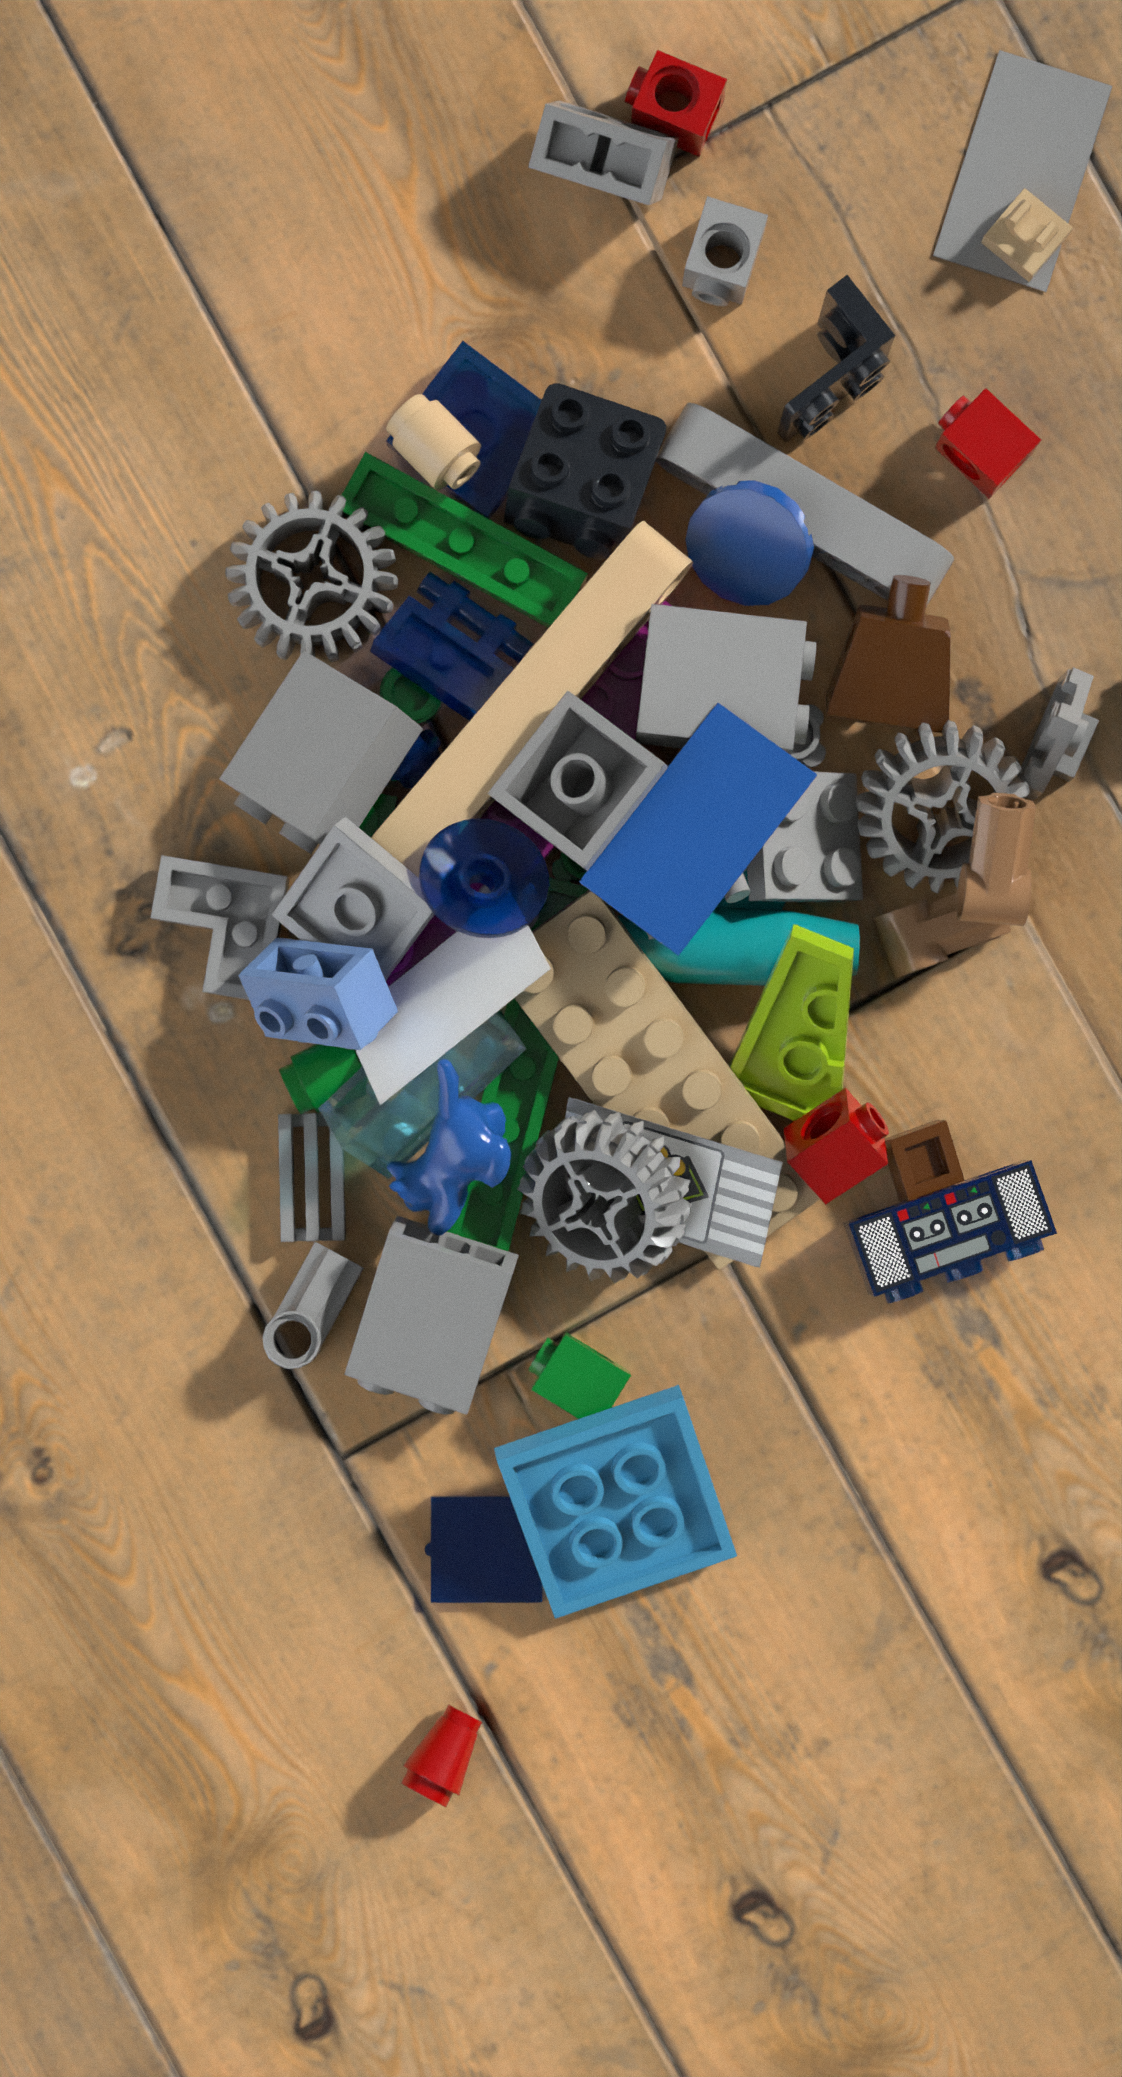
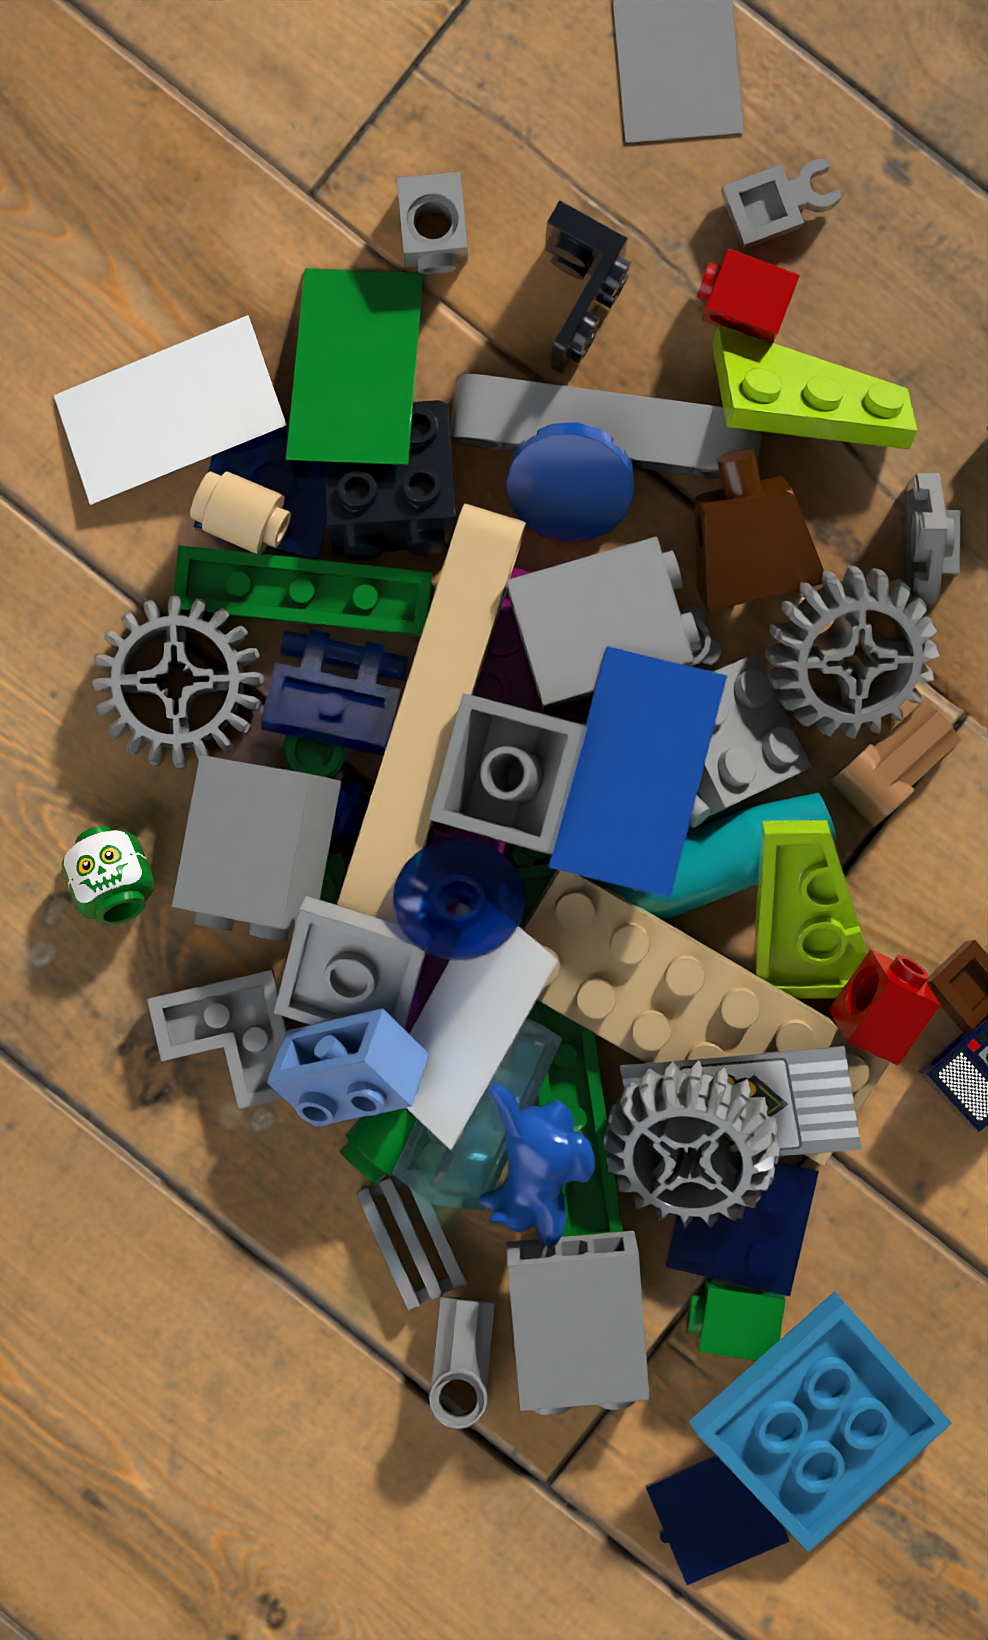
camera: 25 degrees left, 0 degrees up
(173, 727) = (108, 875): none -> head
(409, 325) = (169, 410): none -> white sticker
(596, 355) = (355, 366): none -> green sticker
(603, 152) = (282, 176): light grey brick -> none
(625, 1319) = (757, 1247): none -> clear blue plate
(701, 88) = (348, 122): red brick -> none
(996, 879) = (930, 698): medium nougat piece -> none
(1000, 555) = (806, 396): none -> lime wing
(1026, 235) = (704, 88): tan tile -> none
(1040, 366) = (769, 204): none -> light grey plate

